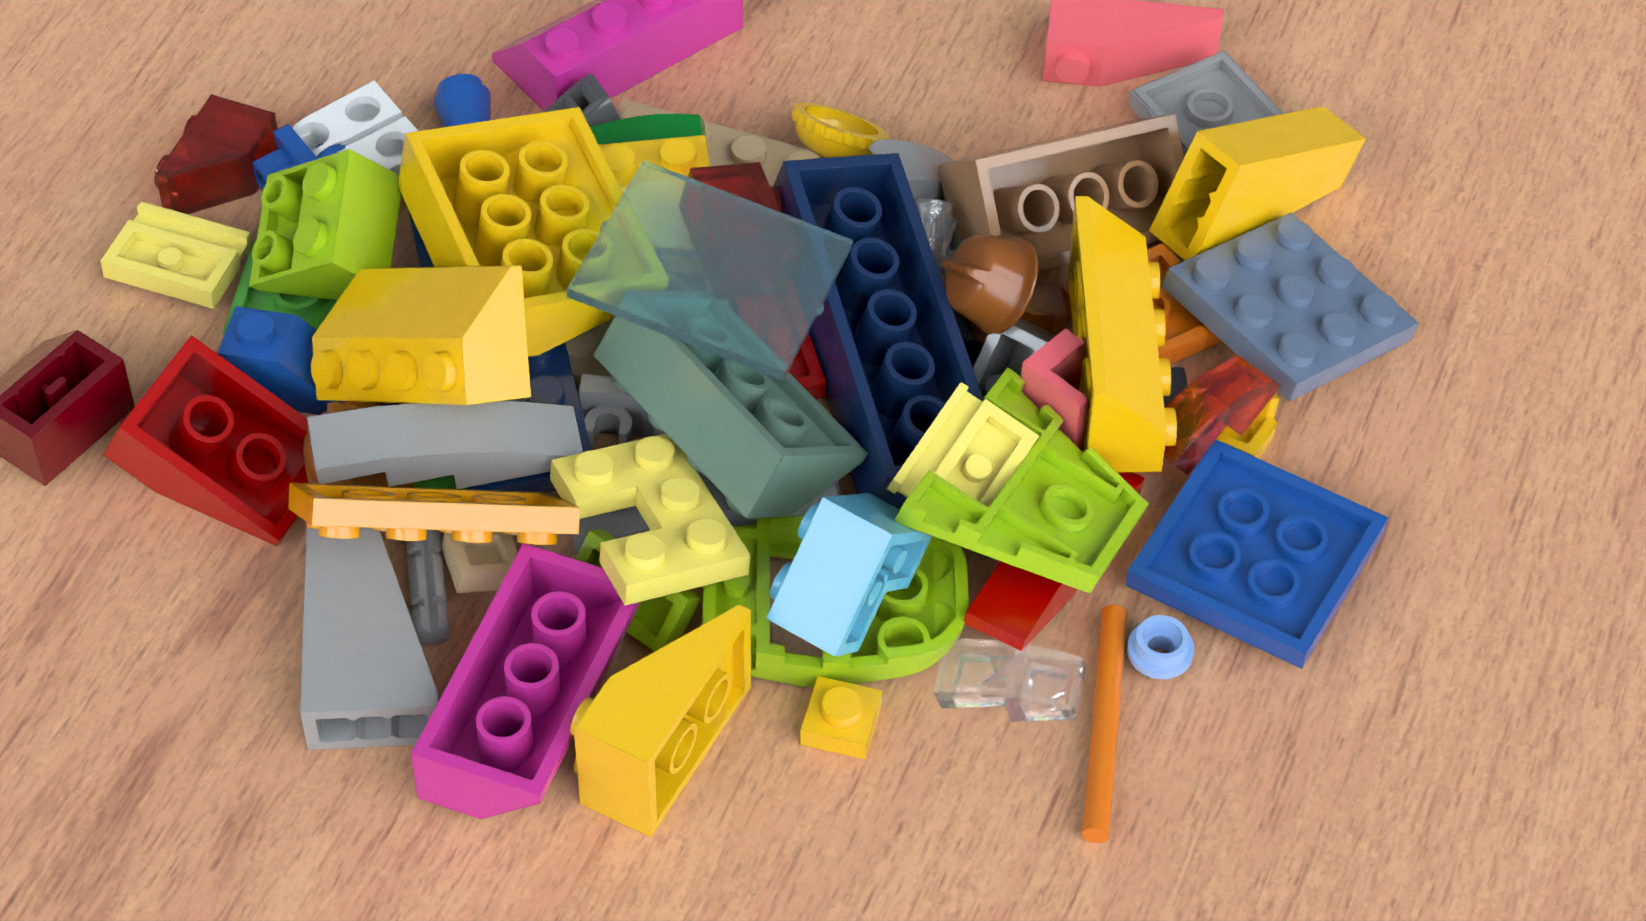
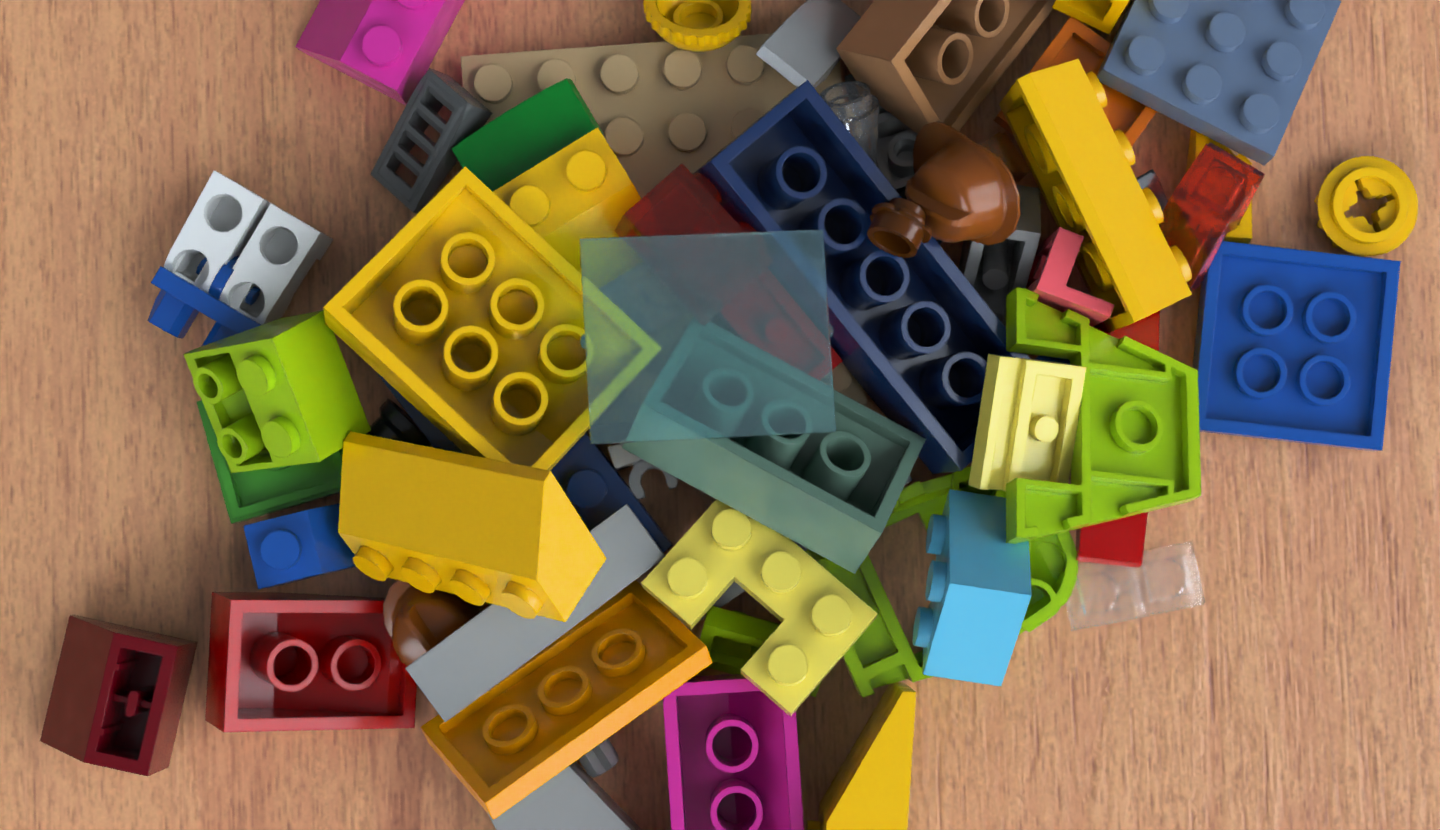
camera: 30 degrees left, 35 degrees up
(176, 255) = (134, 453): light yellow plate -> none
(215, 156) = (104, 319): clear red slope -> none
(462, 100) = (319, 153): blue cone -> none
(841, 717) = (1010, 700): yellow plate -> none
(920, 270) = (898, 227): none -> reddish brown plate
(1104, 724) = (1231, 599): orange bar -> none
(1165, 634) = (1265, 489): light blue plate -> none
(1396, 464) = (1376, 179): none -> yellow gear

